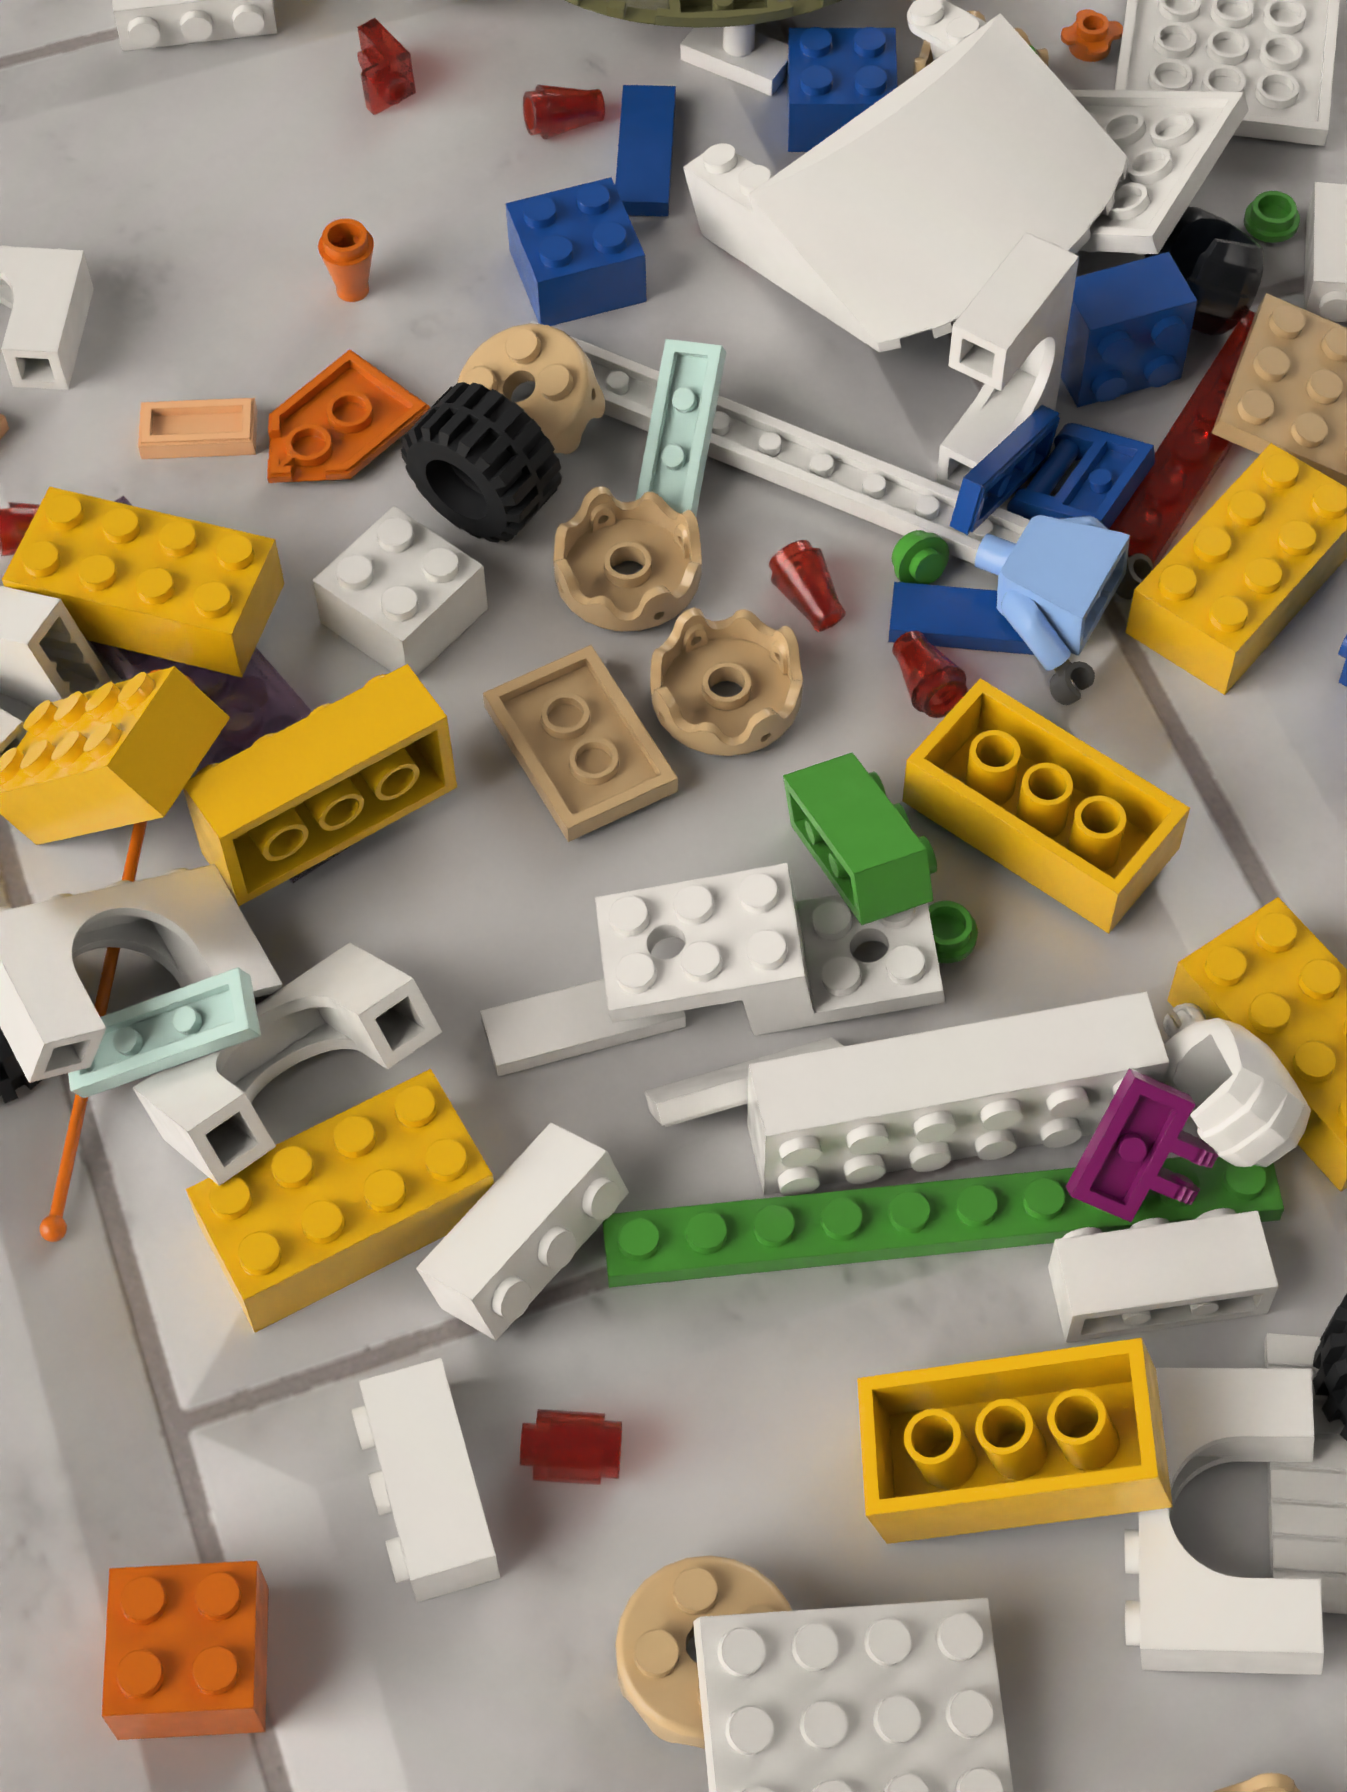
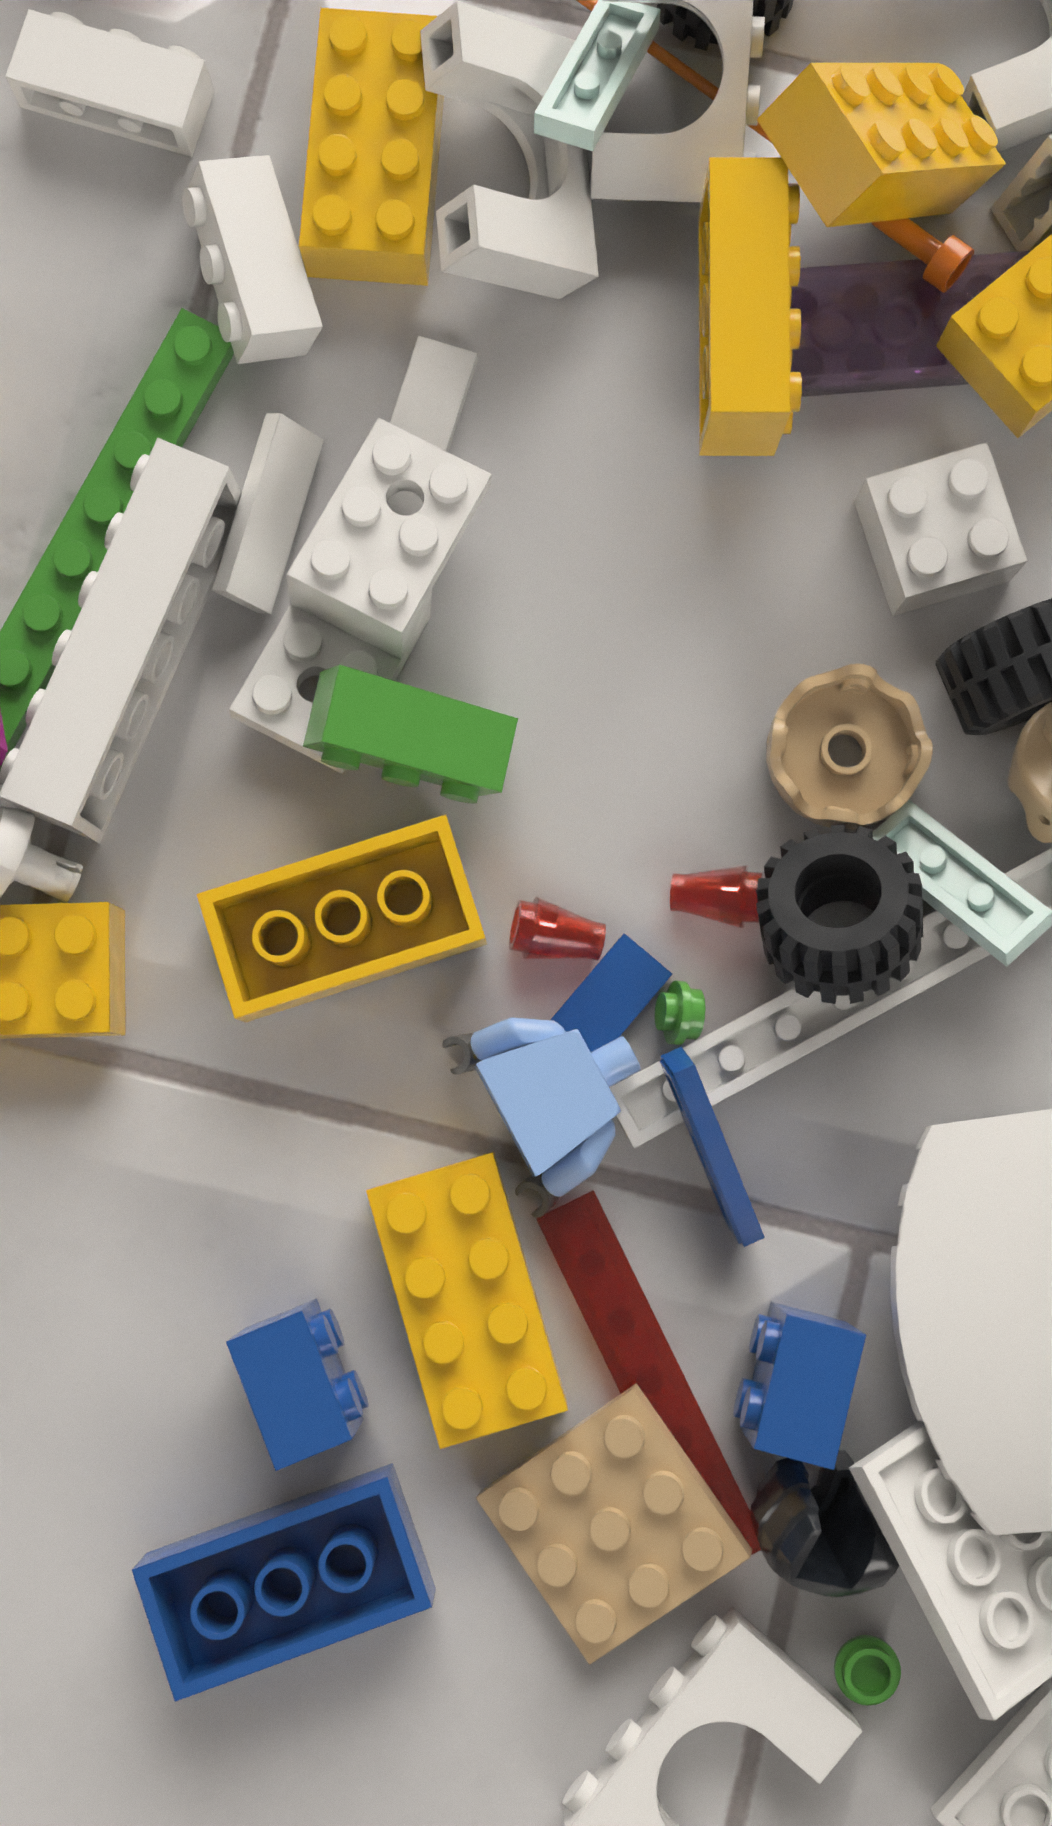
camera: 125 degrees right, 25 degrees up
(571, 1447) = (65, 197): clear red brick -> none
(580, 743) = (685, 591): tan plate -> none
(732, 650) = (663, 703): tan plate -> none
(739, 444) = (833, 870): none -> black tyre
(953, 931) = (298, 775): bright green plate -> none
(1014, 345) = (799, 1201): white arch -> none
(1098, 486) = (650, 1233): blue plate -> none

